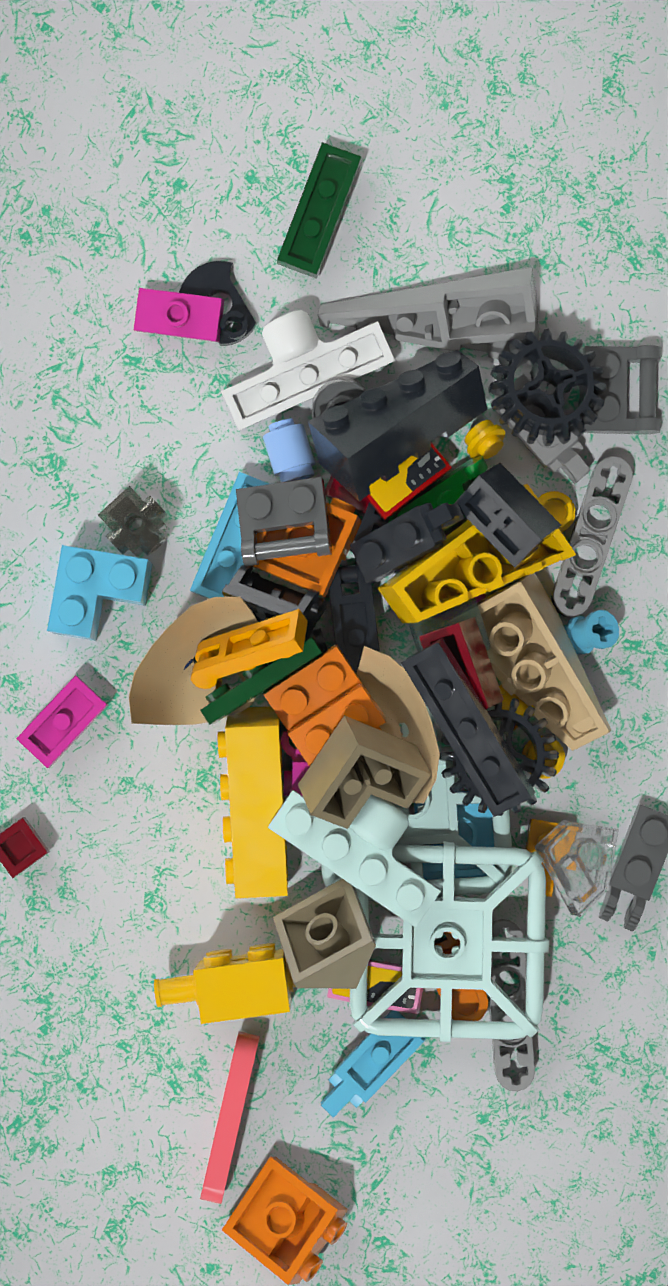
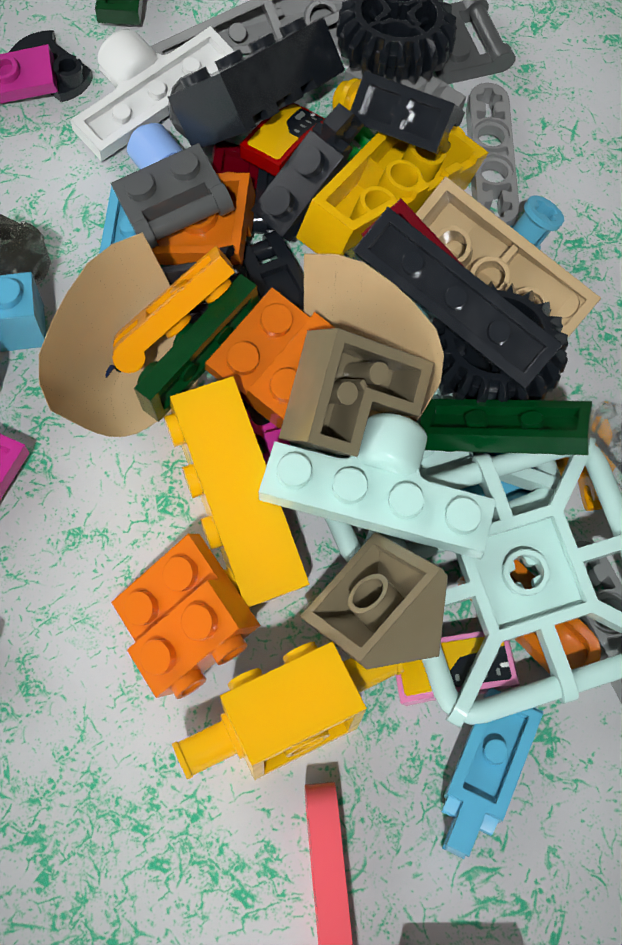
camera: 20 degrees left, 20 degrees down
(189, 888) = (184, 618): none -> orange plate
(476, 832) = (508, 426): none -> dark green plate

